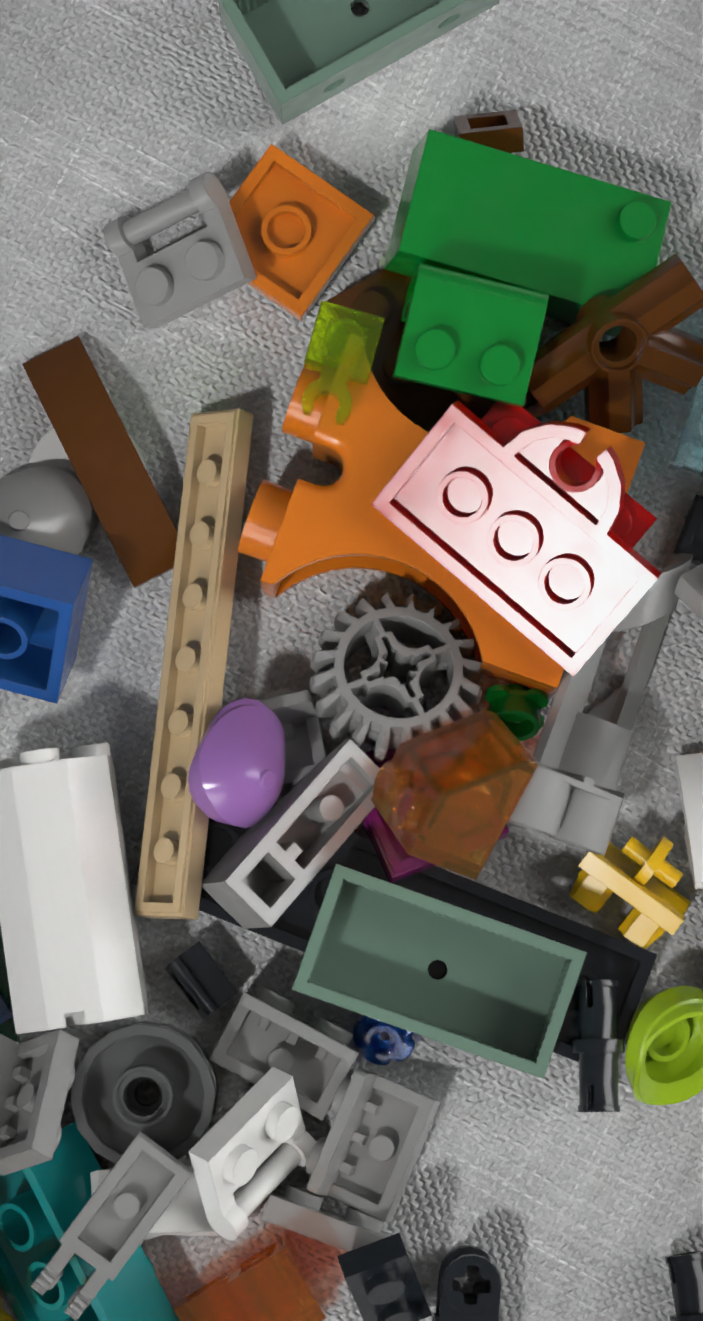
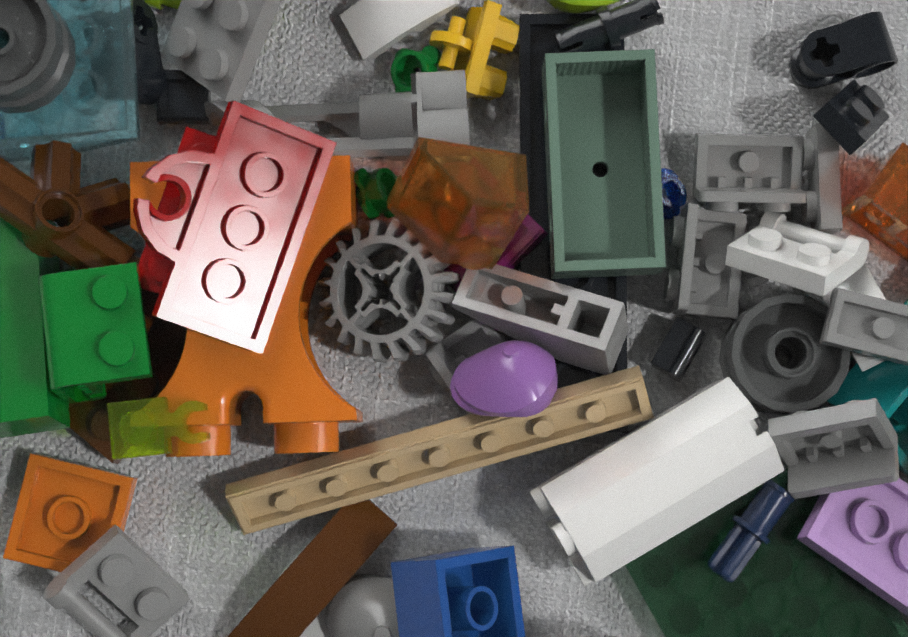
camera: 110 degrees left, 0 degrees up
(648, 799) = (407, 62): none -> green plate

